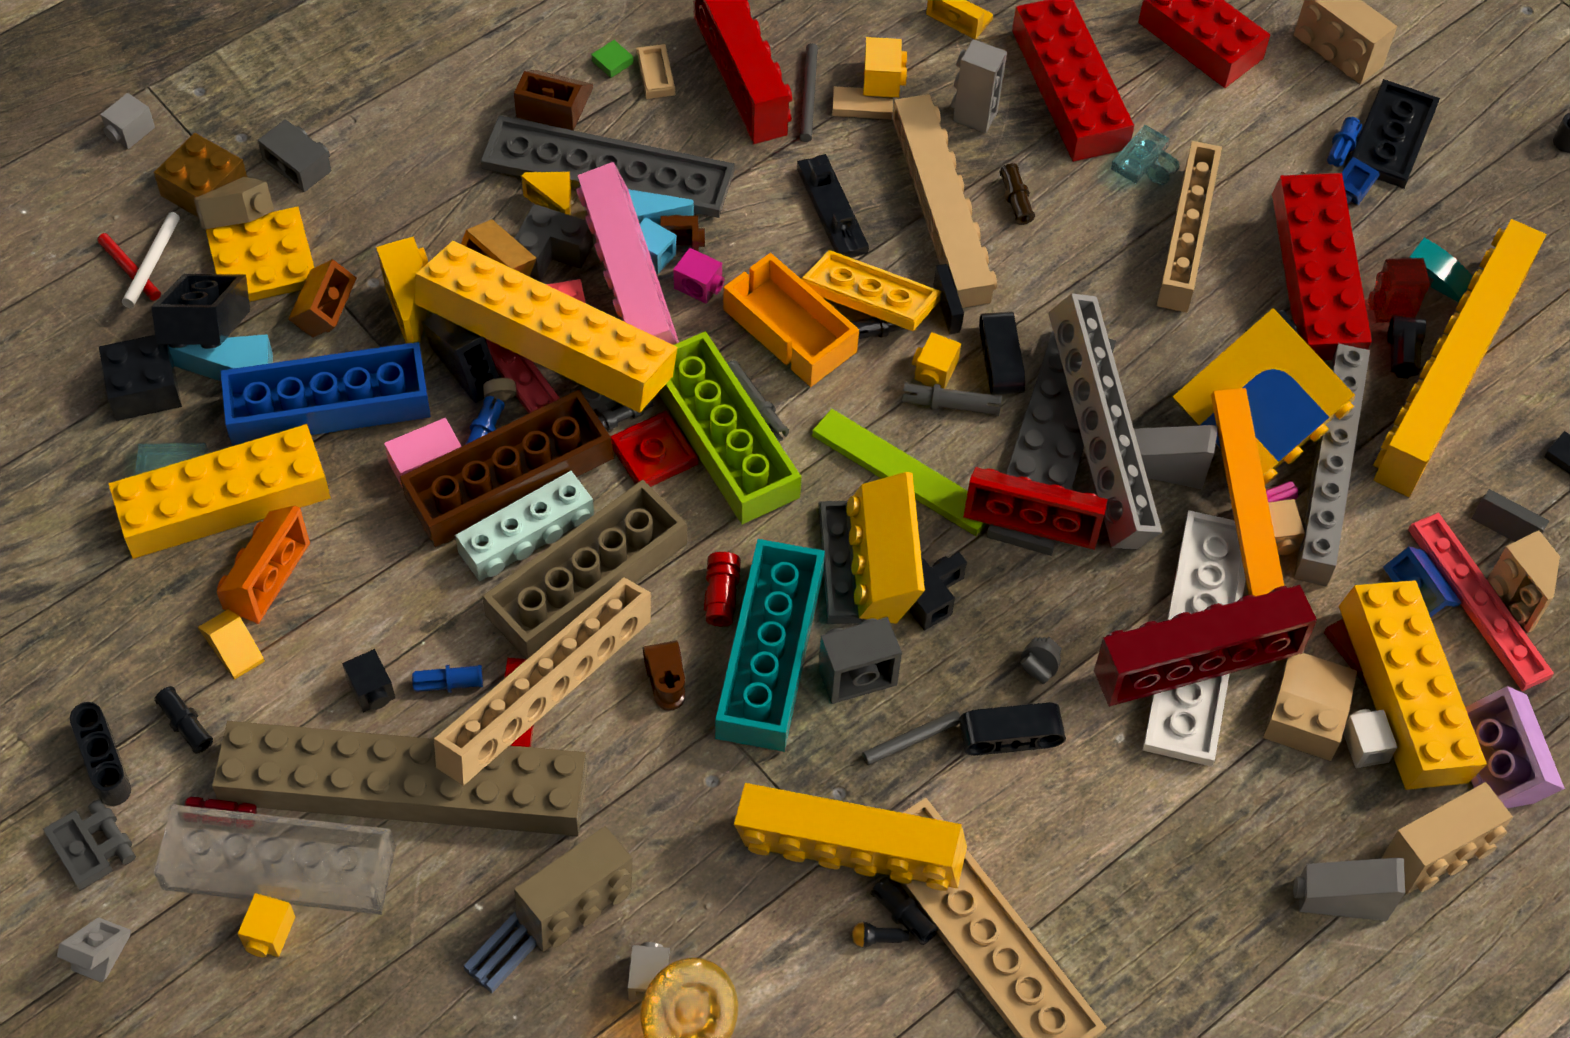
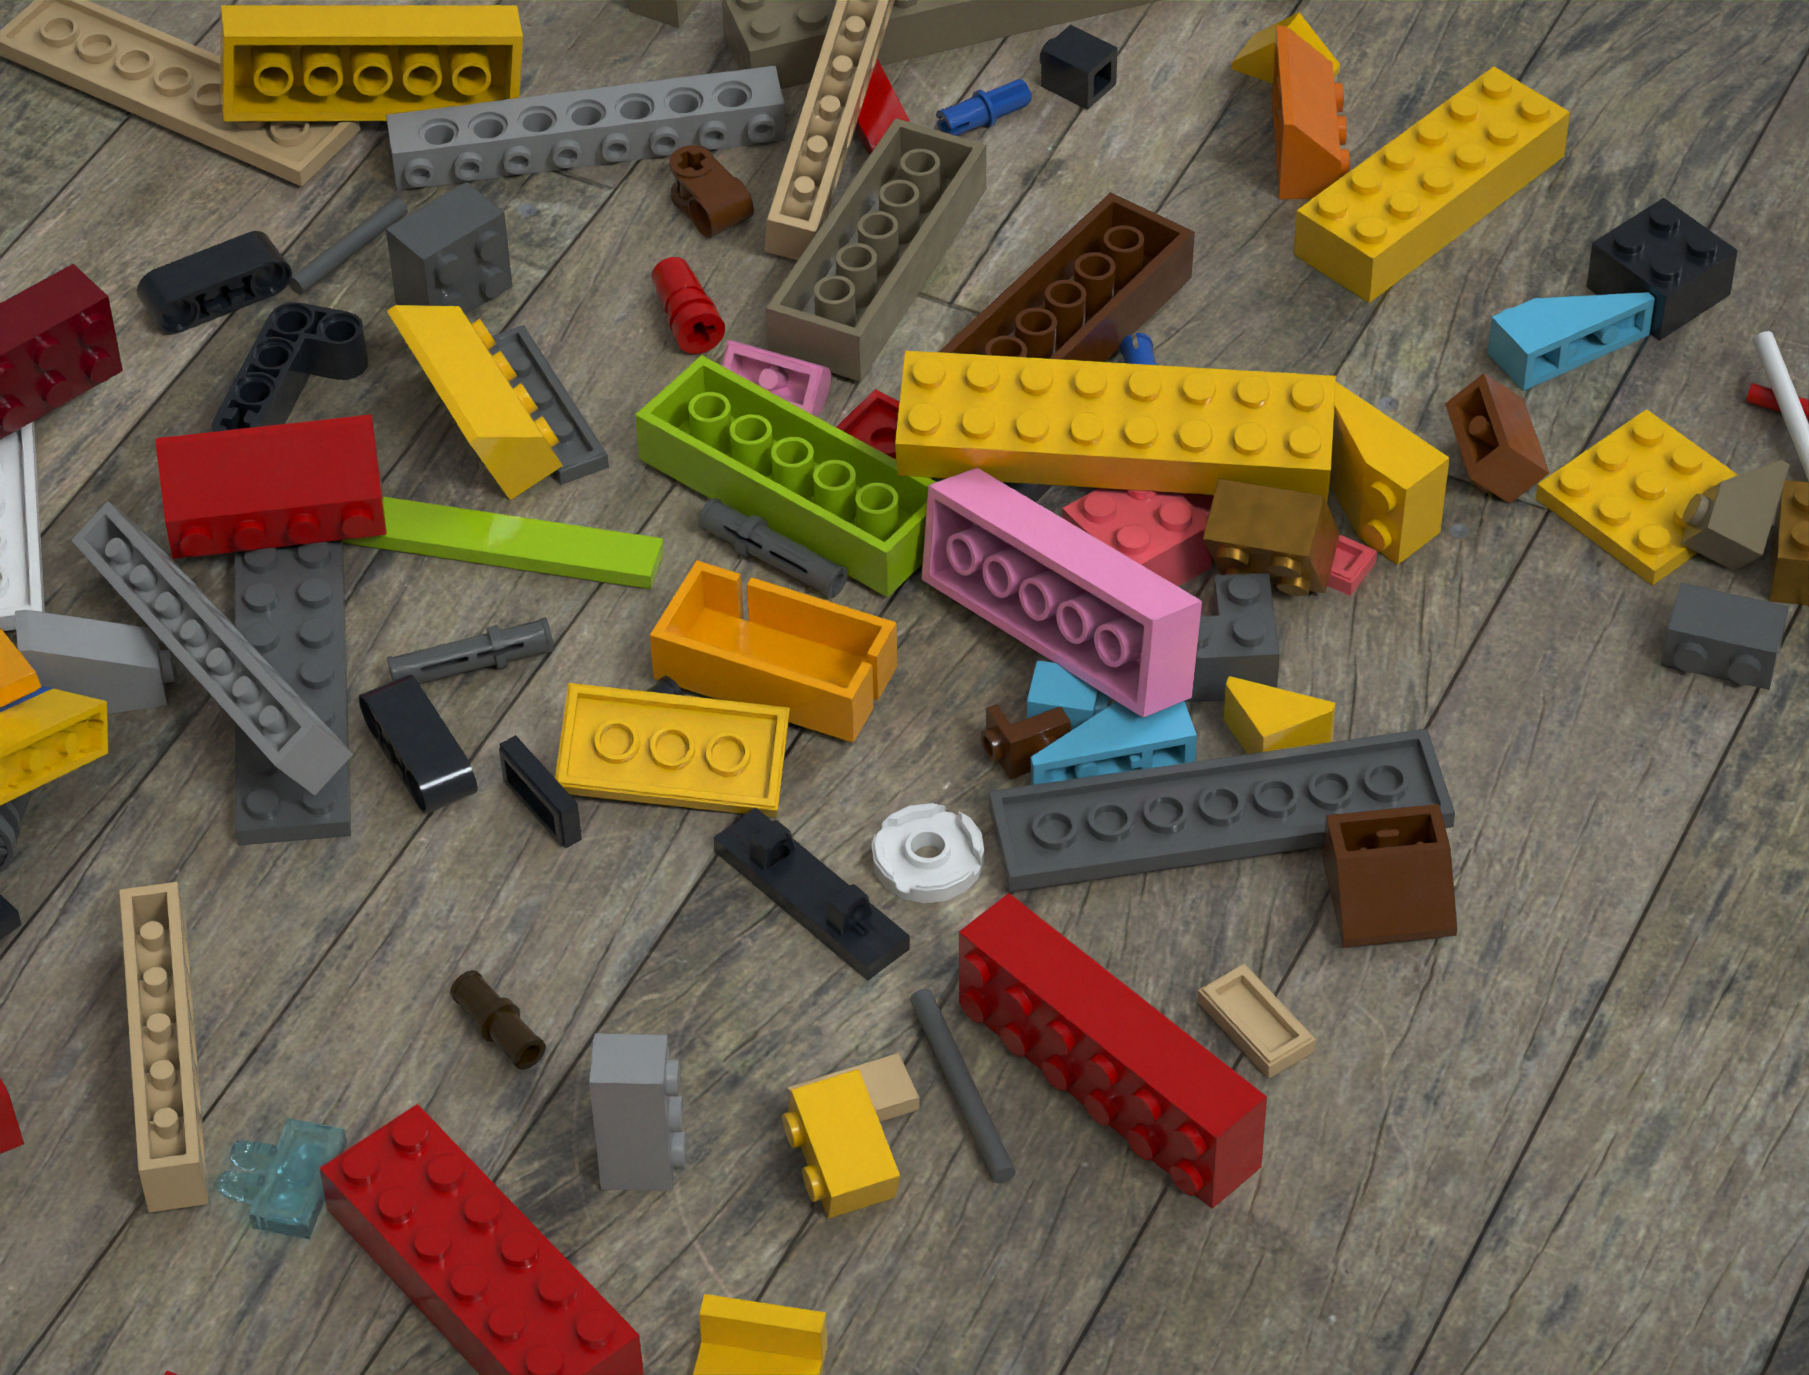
camera: 160 degrees right, 10 degrees down
(161, 455) = (1535, 213): clear light blue tile -> none
(200, 310) = (1638, 328): black brick -> none
(326, 392) = (1397, 311): blue brick -> none
(420, 447) = (1199, 315): bright pink brick -> none
(525, 526) = (993, 266): light aqua brick -> none
(612, 58) = (1345, 1011): bright green tile -> none
(697, 512) = (787, 377): none -> bright pink brick
(698, 275) = (959, 683): dark pink brick -> none
(705, 744) = (585, 127): none -> light grey brick
(763, 220) = (927, 878): none -> white tile
(770, 645) = (582, 252): teal brick -> none
(936, 360) = (517, 691): yellow brick -> none
(937, 600) = (392, 389): black brick -> none
(942, 199) = (626, 956): tan brick -> none
(1000, 622) = (291, 347): none -> black beam
(1041, 658) = (204, 367): dark grey piece -> none

